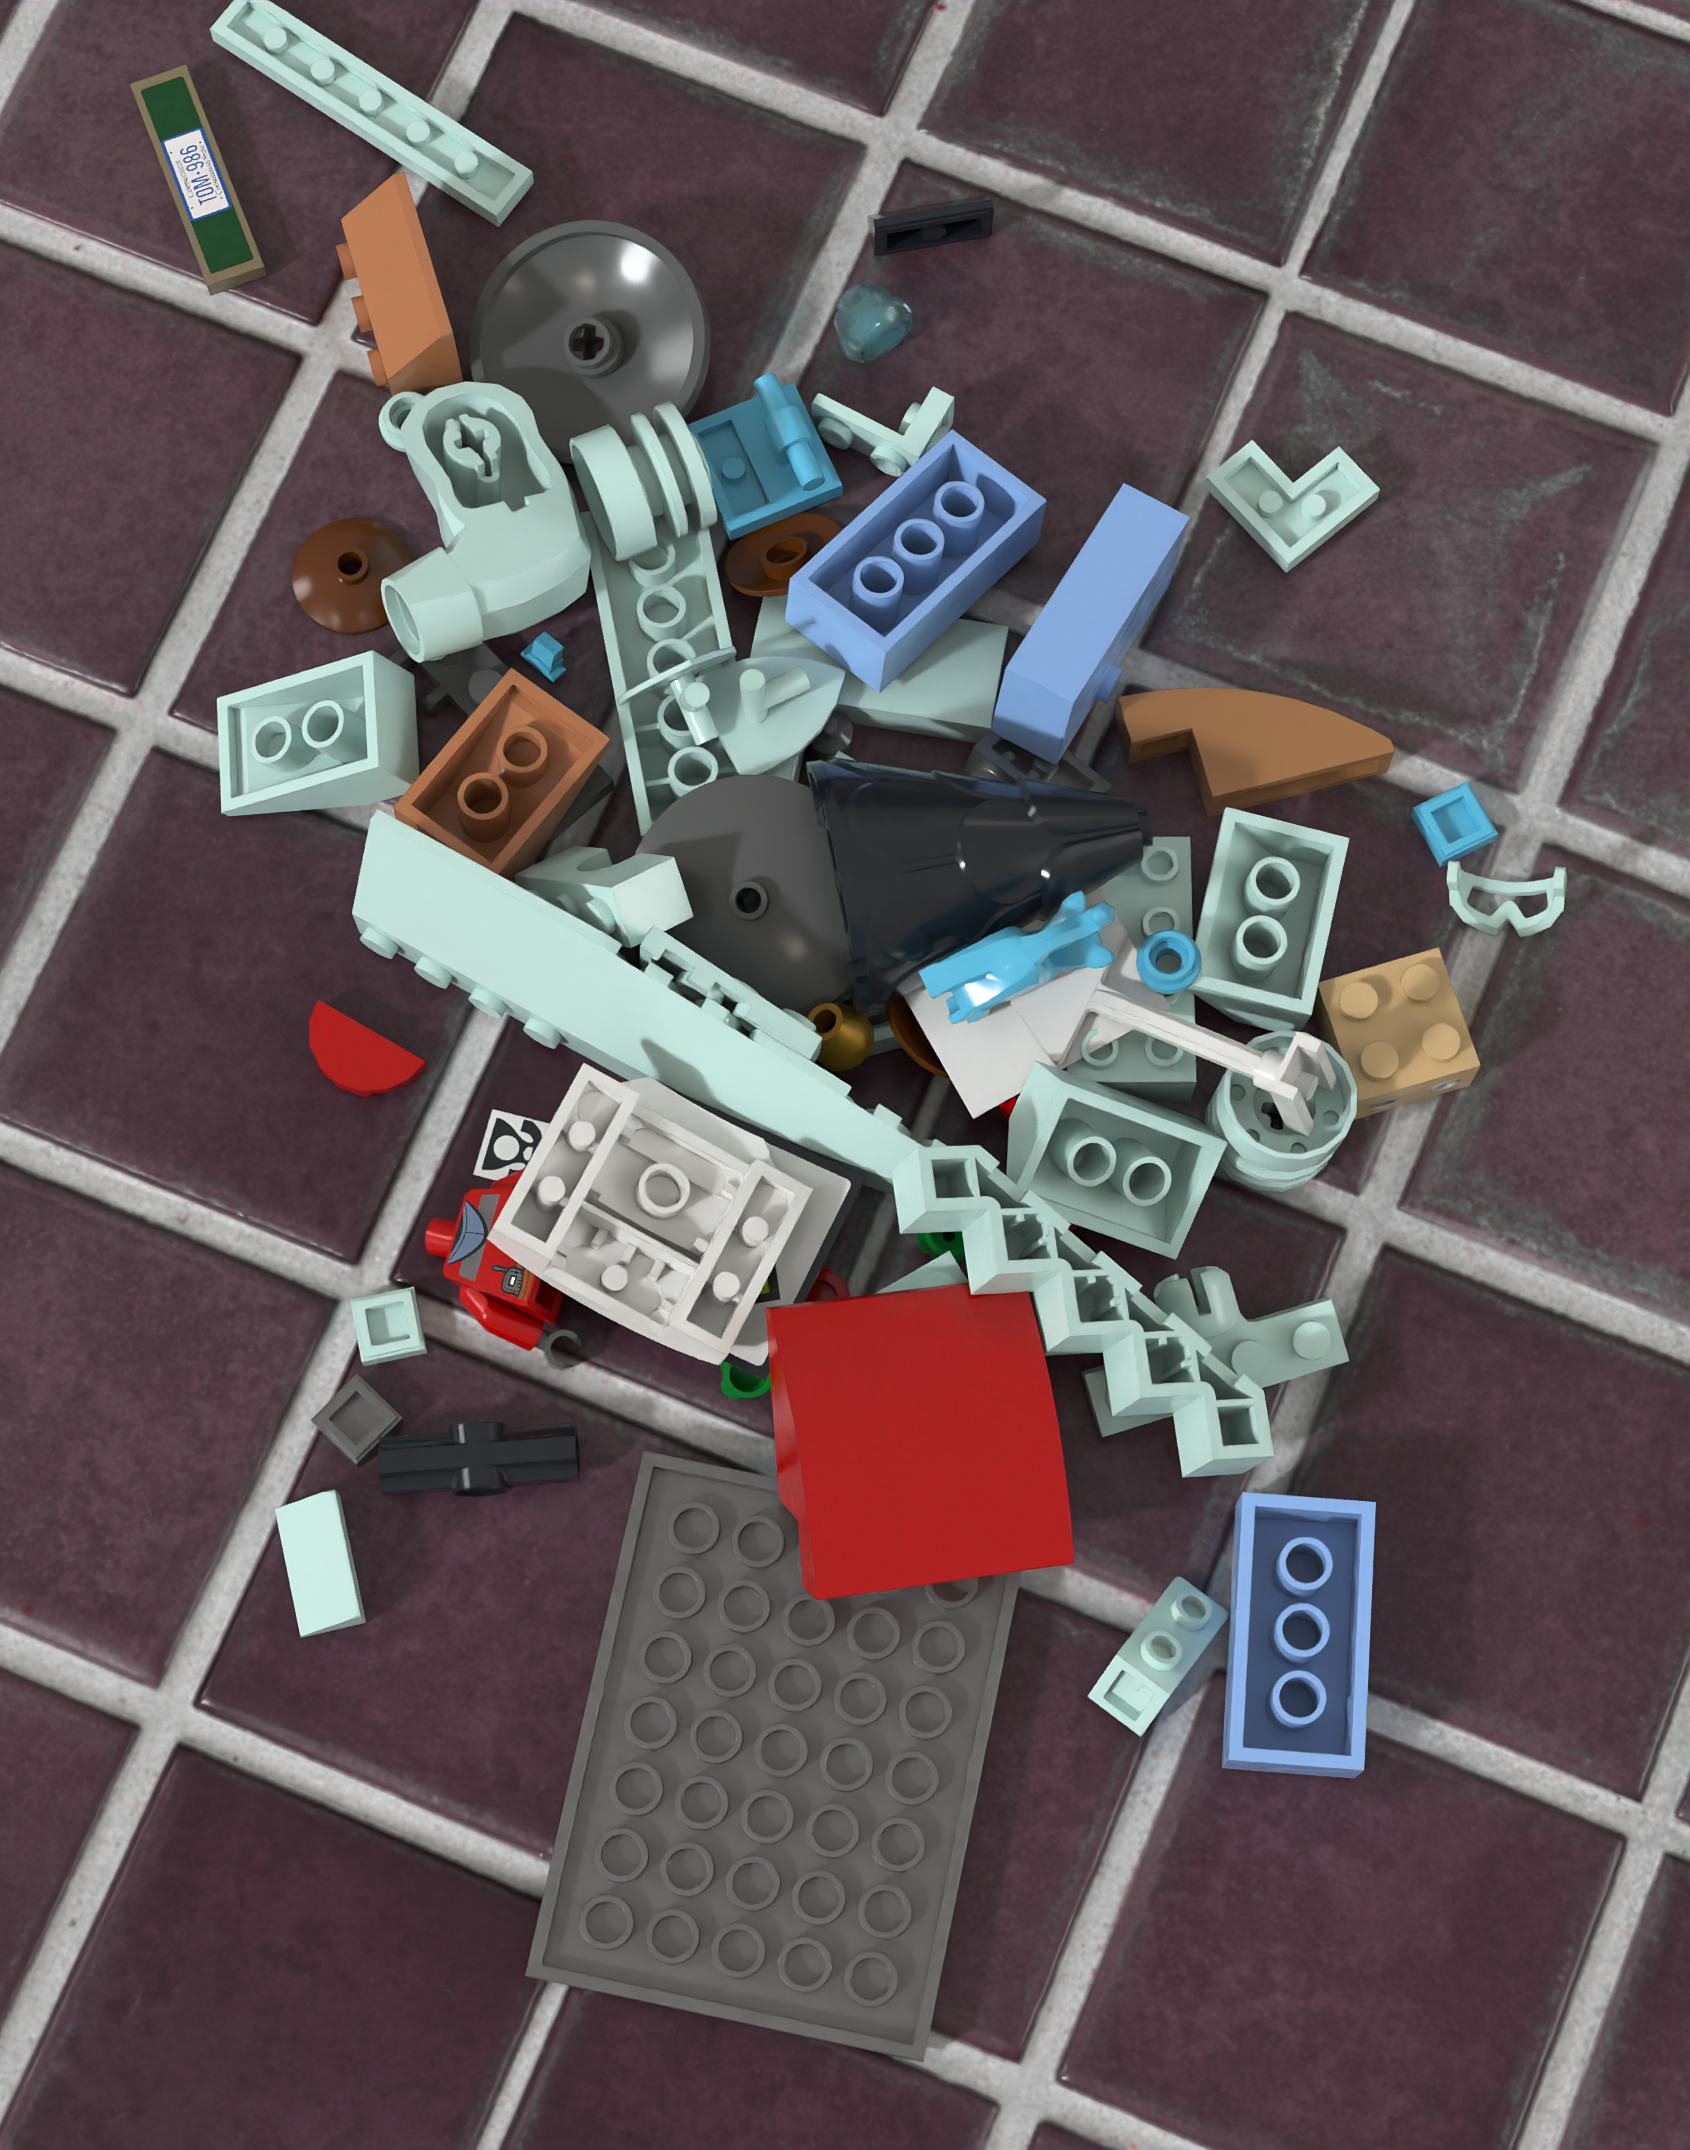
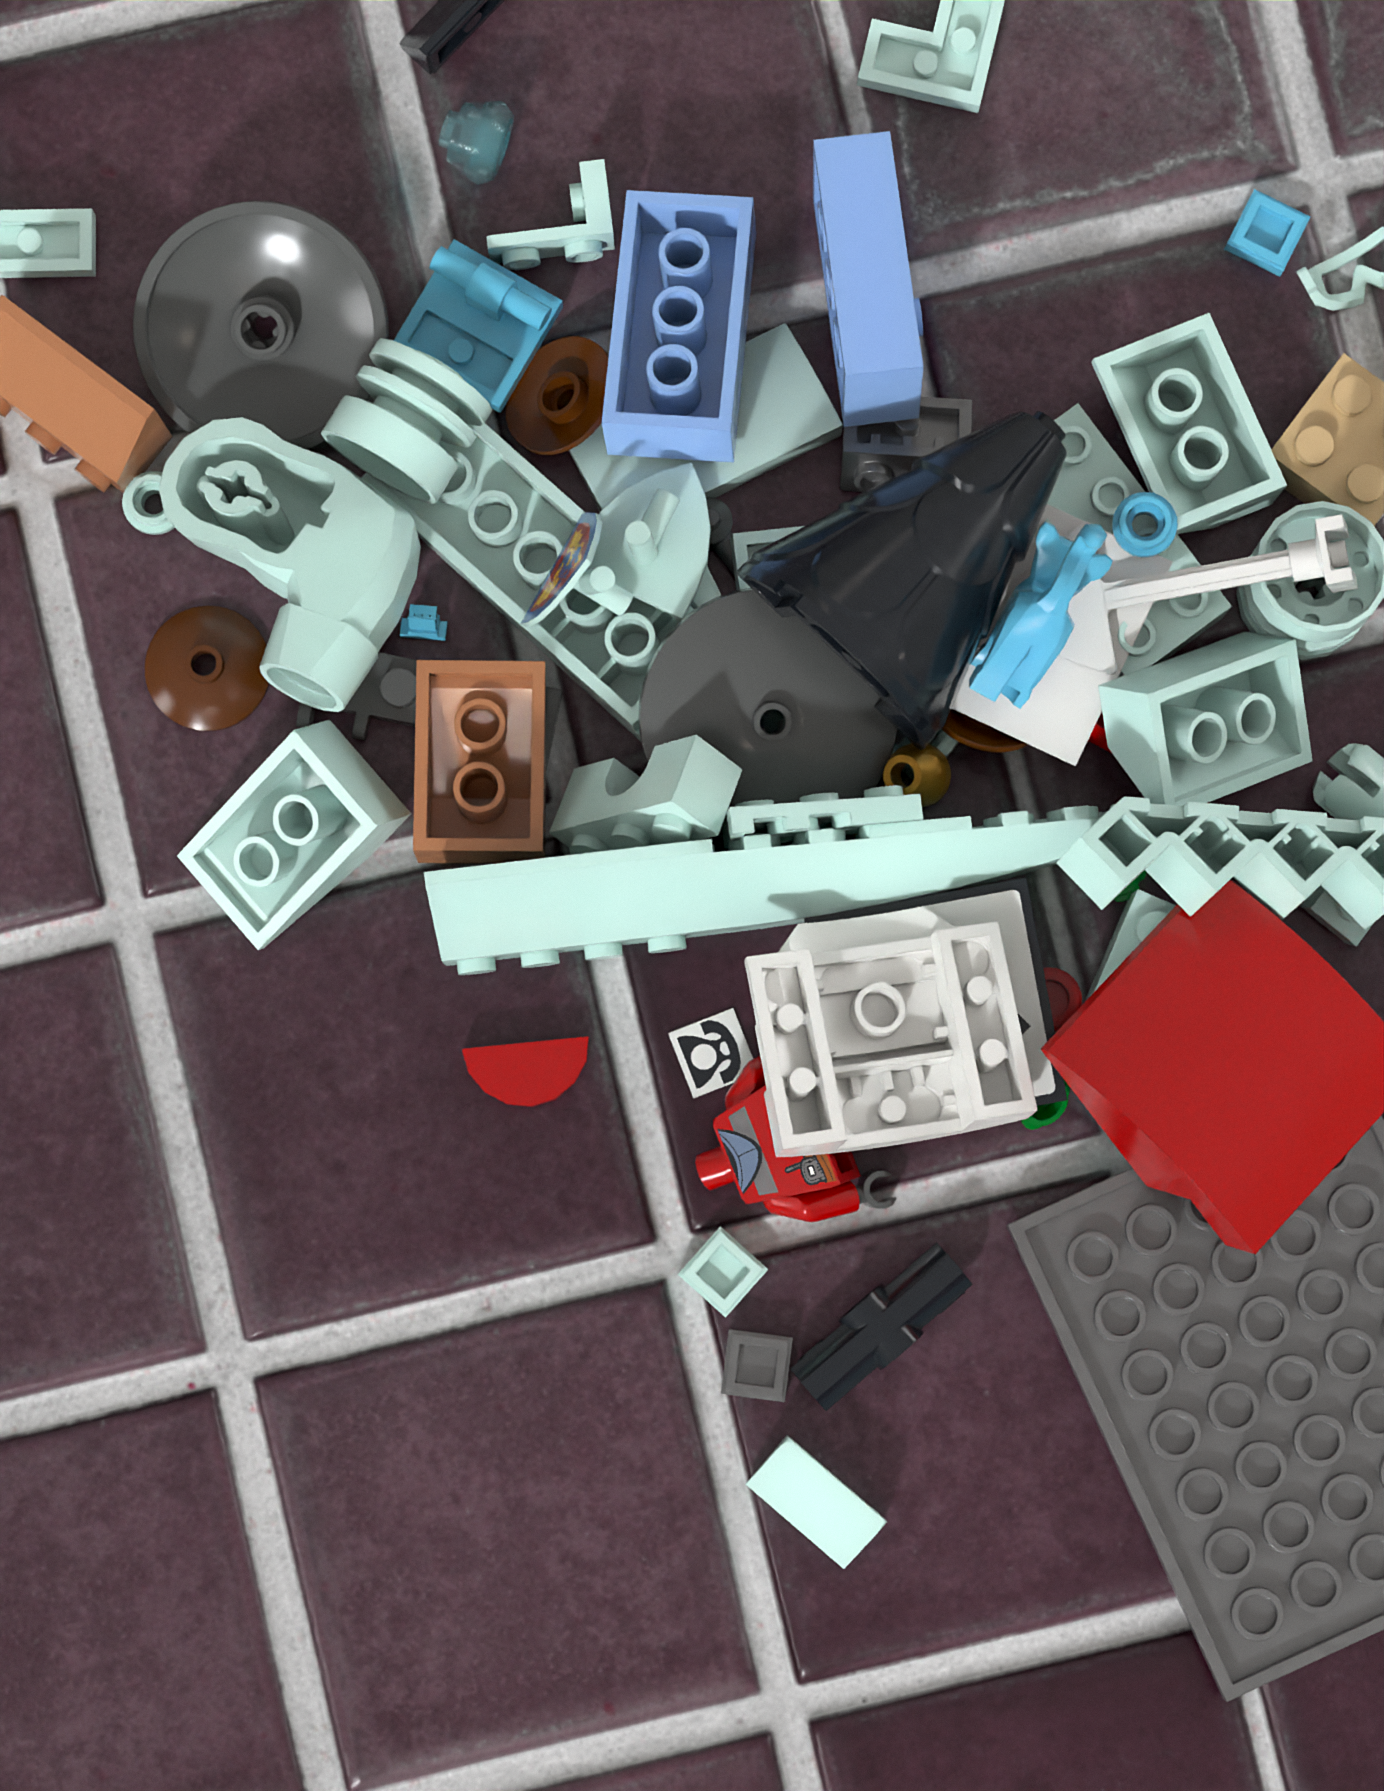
camera: 35 degrees left, 10 degrees up
(1250, 743) = (1057, 285): medium nougat slope -> none

